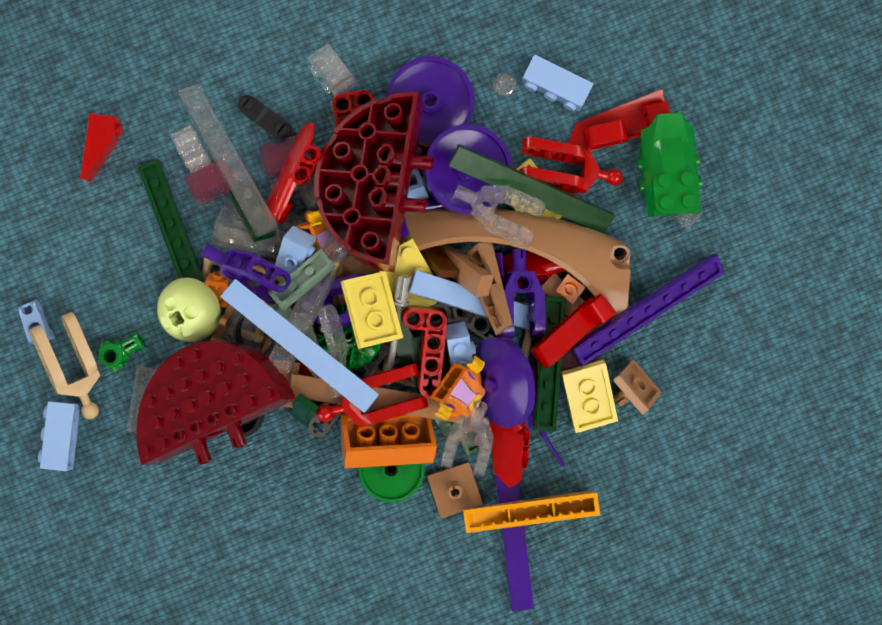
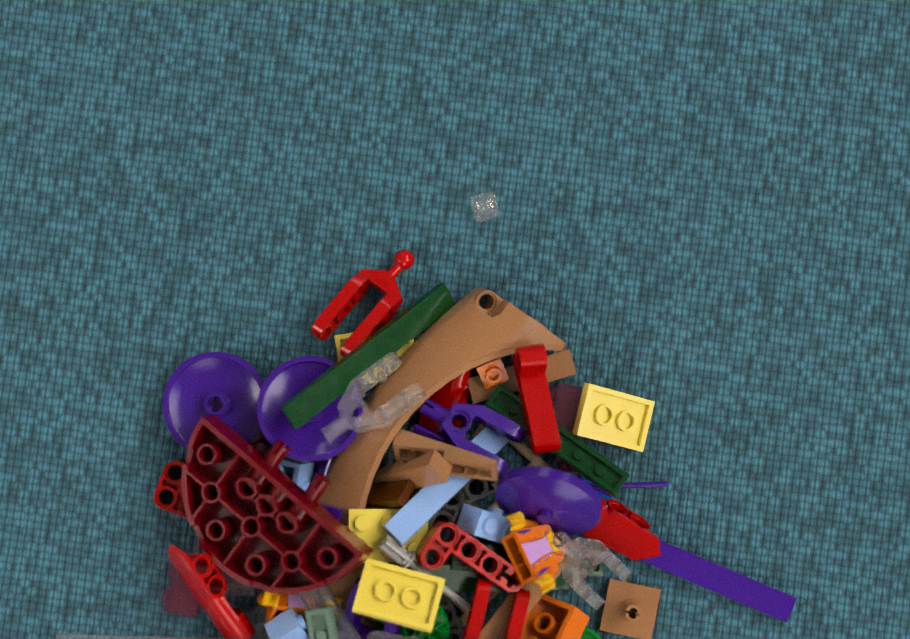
camera: 55 degrees left, 0 degrees up
(265, 117) = (133, 584): black piece -> none
(331, 71) = (124, 488): clear brick -> none
(504, 85) = (243, 317): clear tile -> none
(532, 511) = (696, 545): light orange slope -> none
(556, 83) = (273, 263): light blue brick -> none
(619, 123) = (354, 212): red panel -> none
(636, 387) = (631, 364): medium nougat tile -> none
(647, 309) = (559, 306): dark purple tile -> none
(669, 167) = (427, 199): green slope -> none

